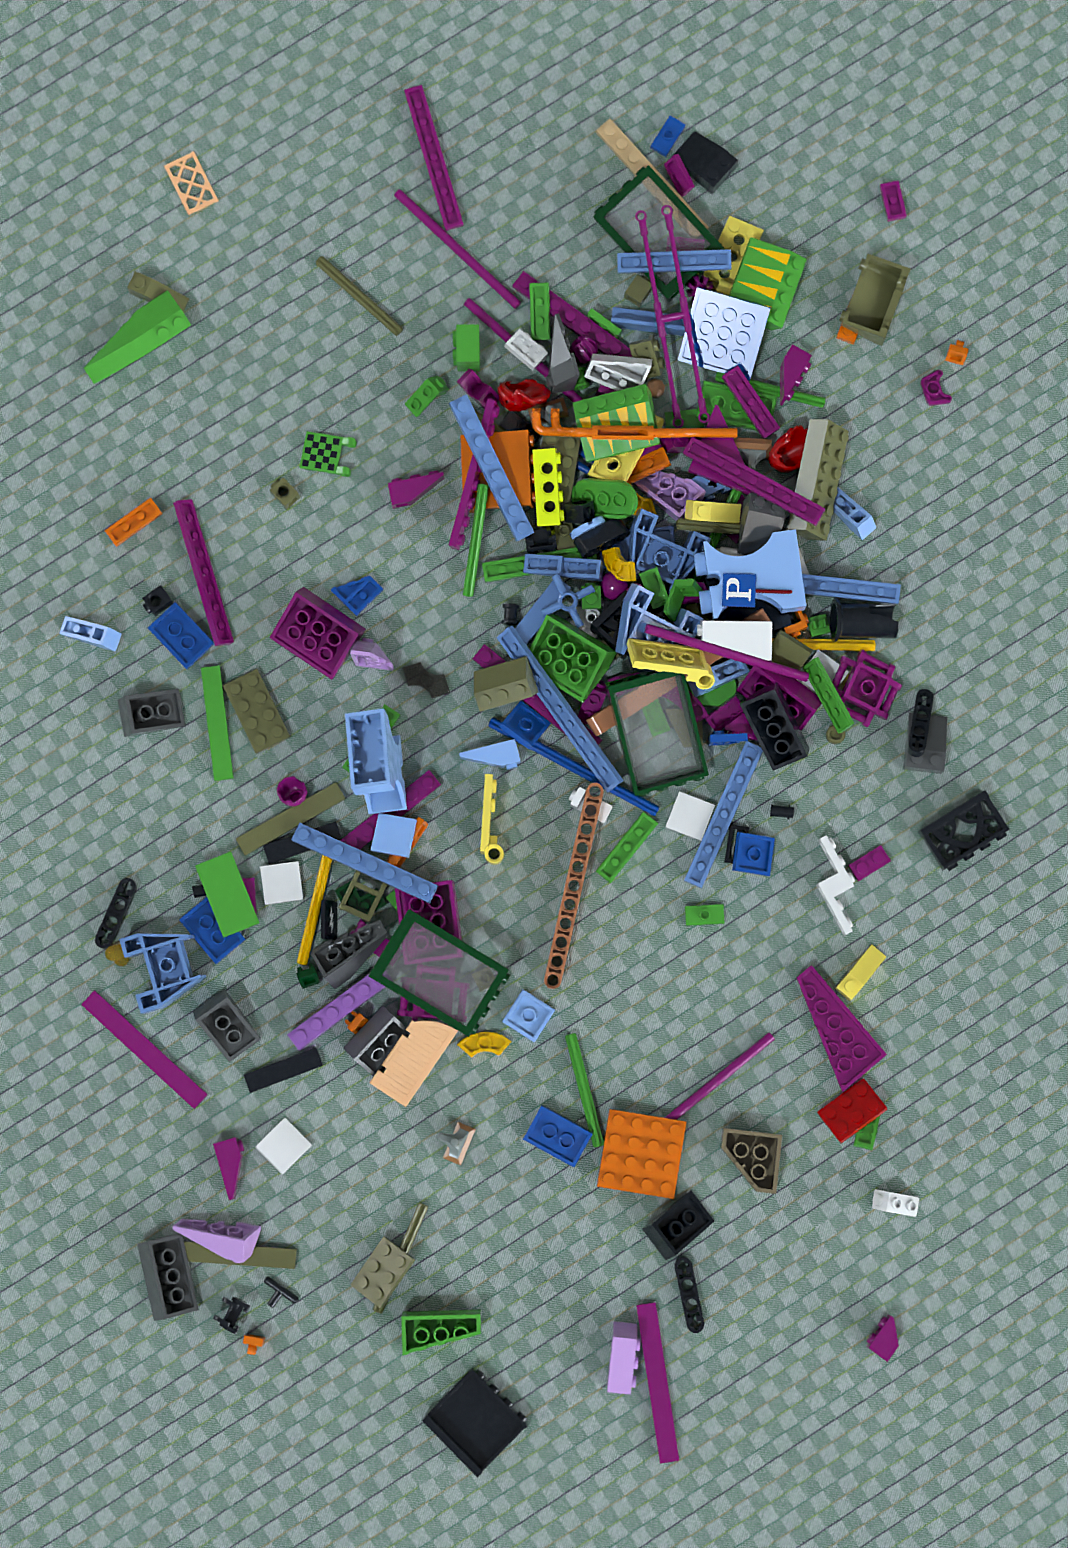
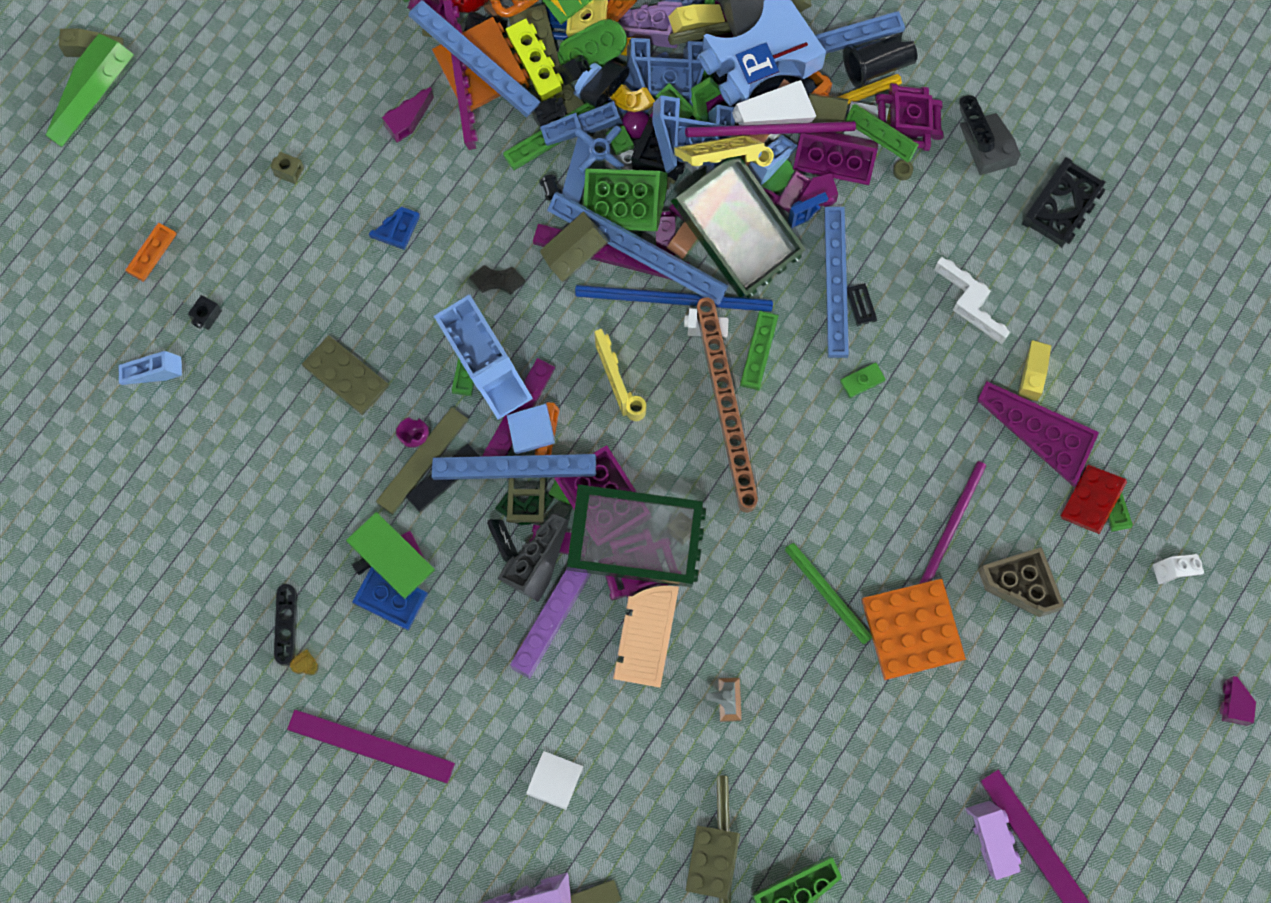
camera: 25 degrees left, 10 degrees down
(151, 712) = (240, 418): dark grey slope -> none
(166, 965) = (358, 650): medium blue wedge -> none
(181, 635) = (241, 335): blue plate -> none
(203, 572) = (239, 269): magenta plate -> none
(217, 723) = (311, 402): bright green tile -> none
(226, 1025) = (444, 685): dark grey slope -> none
(229, 1159) = (506, 818): magenta slope -> none
(281, 883) = (440, 524): white tile -> none
(283, 1070) = (521, 705): black tile -> none
(307, 977) = (506, 602): dark green tile -> none
(314, 910) = (484, 537): yellow axle -> none
(317, 632) = (372, 278): magenta slope -> none
(323, 453) = (310, 120): bright green flag -> none
(357, 1023) = (576, 626): orange tile -> none
(369, 654) = (435, 275): lavender wedge -> none
(376, 1040) = (601, 634): dark grey slope -> none
(425, 394) = (383, 31): bright green bracket -> none
(475, 541) = (488, 134): bright green axle -> none
(483, 1042) = (708, 590): yellow tile -> none
(498, 755) = (597, 316): light blue slope -> none
(525, 725) = (610, 277): blue plate -> none
(528, 1015) = (739, 546): light blue tile -> none
(558, 1136) = (824, 647): blue plate -> none
(678, 1225) = (983, 683): black slope -> none
(690, 816) = (805, 297): white tile -> none
(691, 1294) = (1023, 749): black beam -> none
(753, 854) = (881, 304): blue plate -> none
(775, 727) = (846, 180): black slope -> none
(782, 811) = (889, 256): black pin -> none
(818, 625) = (841, 83): bright green tile -> none
(869, 863) = (993, 268): magenta plate -> none

